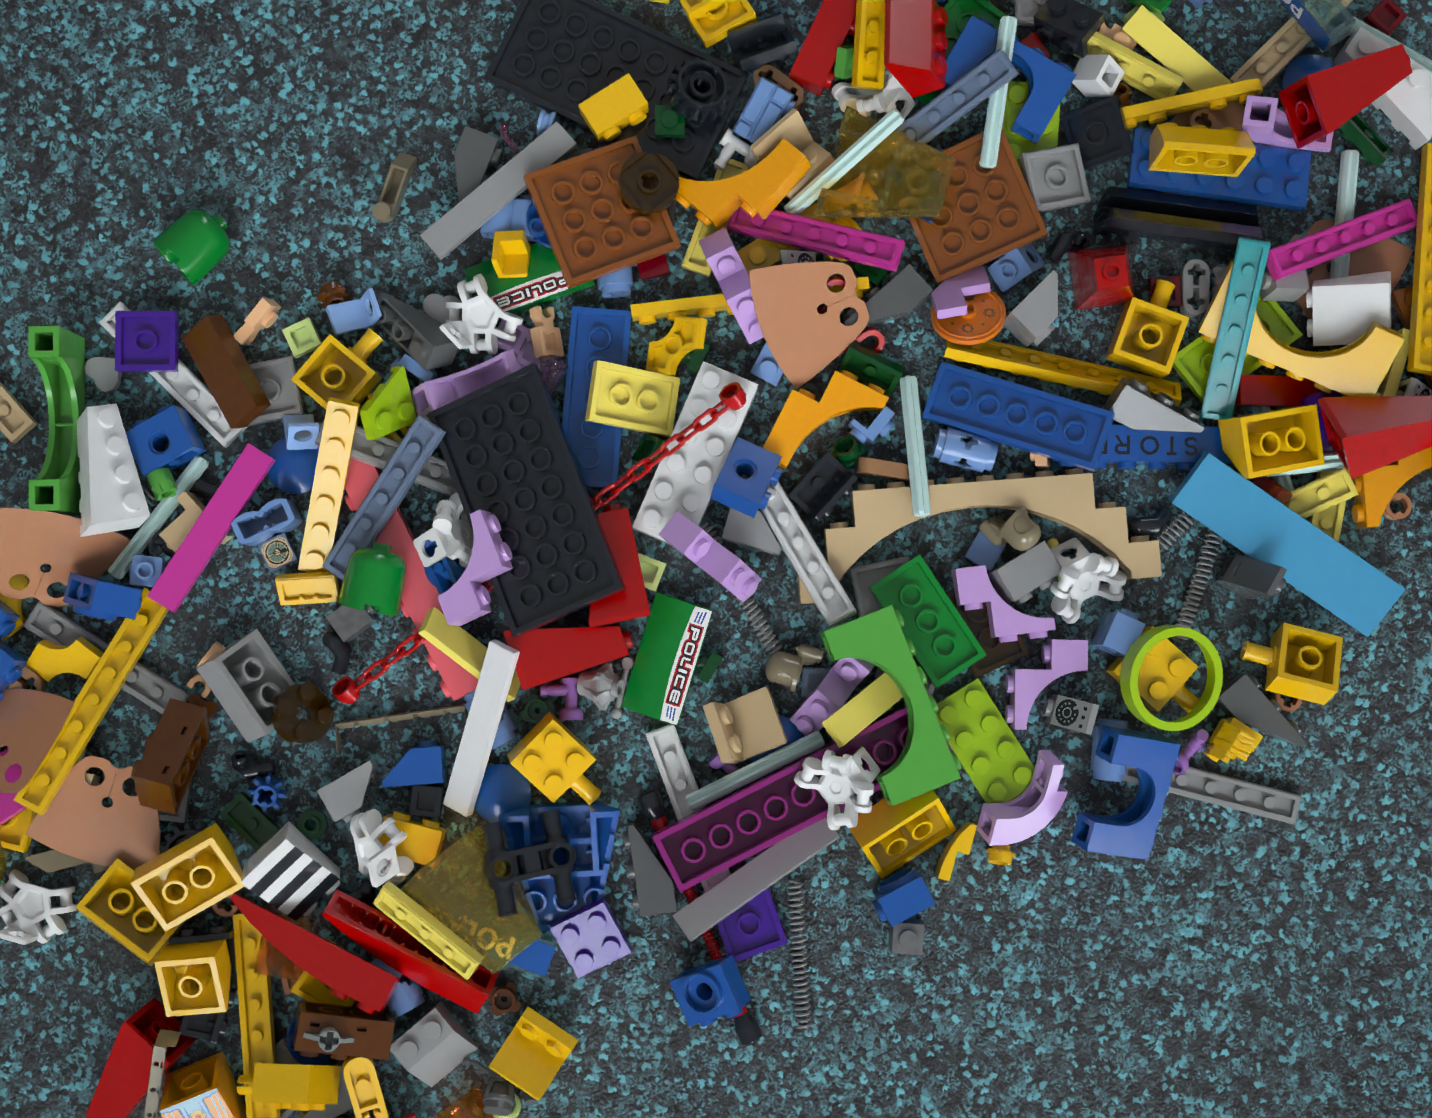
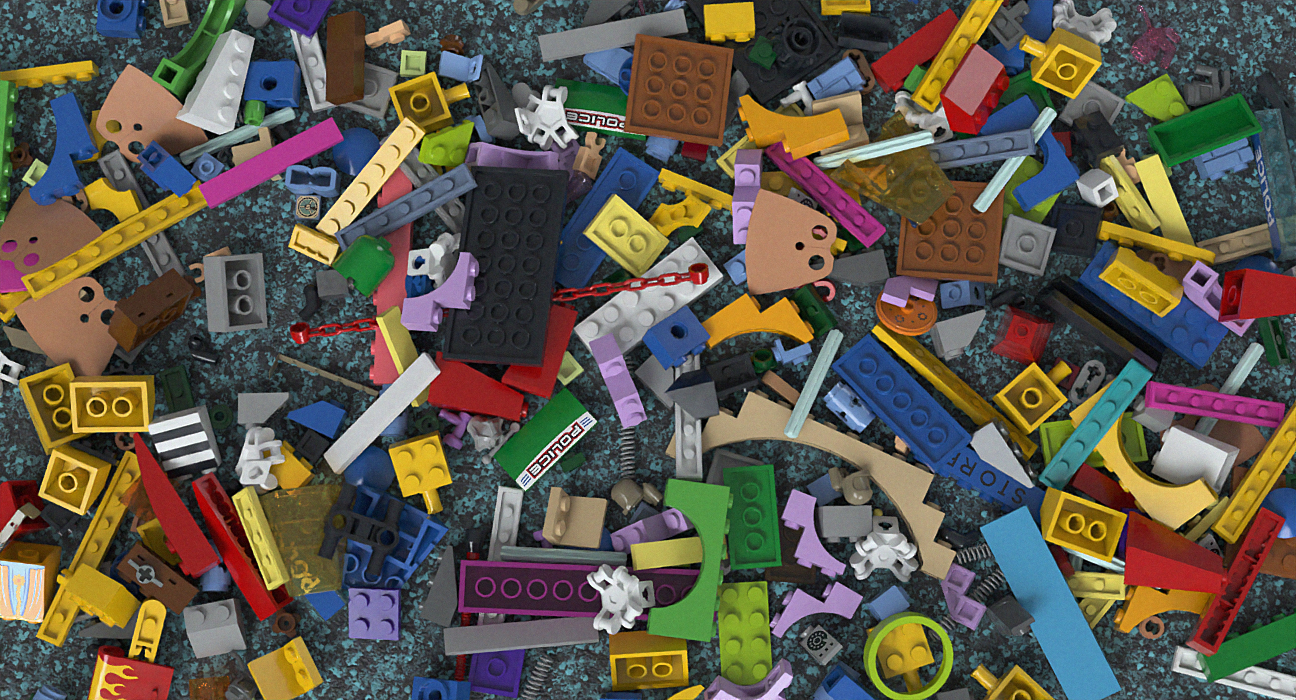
camera: 30 degrees right, 5 degrees down
(265, 784) = (199, 381): blue gear -> none
(300, 431) = (373, 129): light blue bracket -> none
(317, 709) = (272, 332): dark brown plate -> none
(511, 254) = (596, 85): yellow panel -> none
(652, 166) = (732, 77): dark brown plate -> none
(799, 525) = (695, 394): none -> black slope
(1193, 594) = (960, 606): none -> lavender tile

